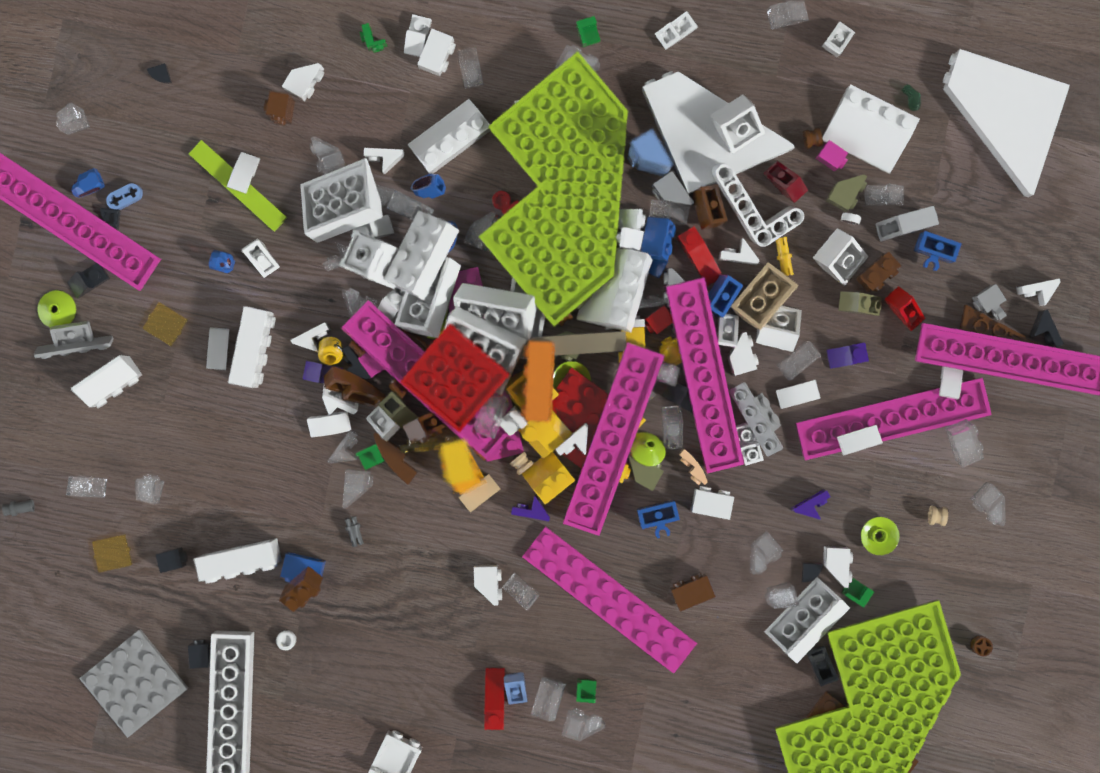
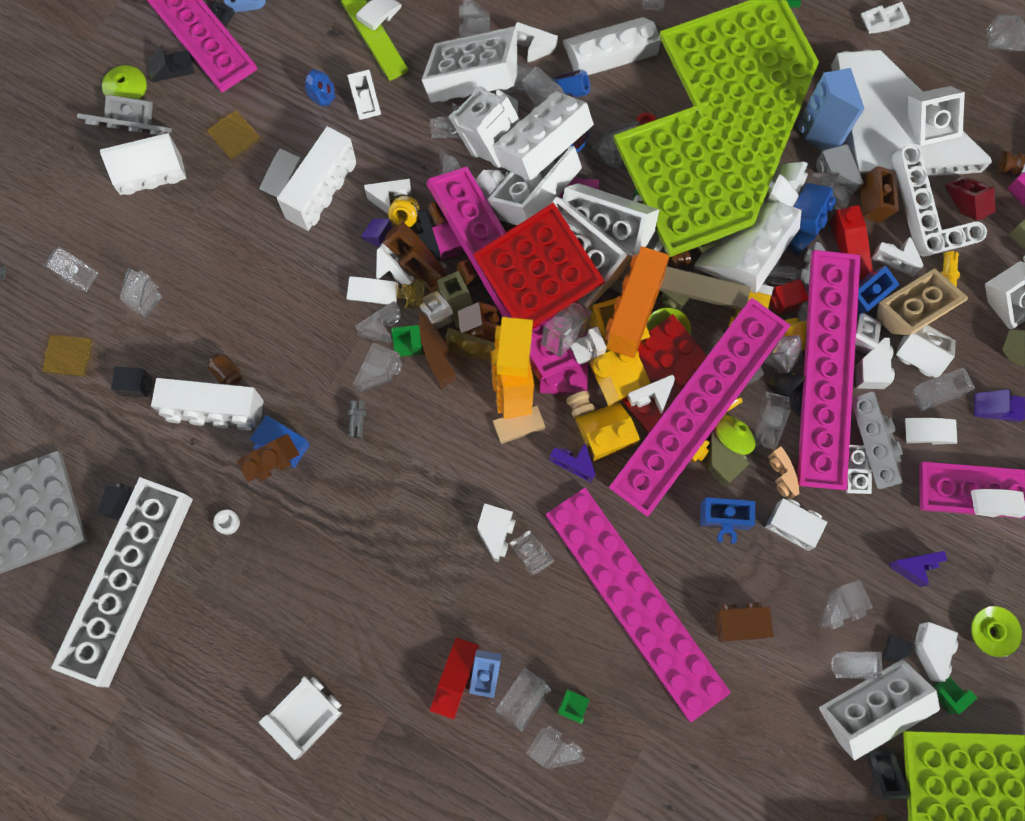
camera: 10 degrees right, 15 degrees down
(239, 527) = (224, 370): none -> reddish brown brick
(362, 417) = (412, 293): none -> clear yellow tile

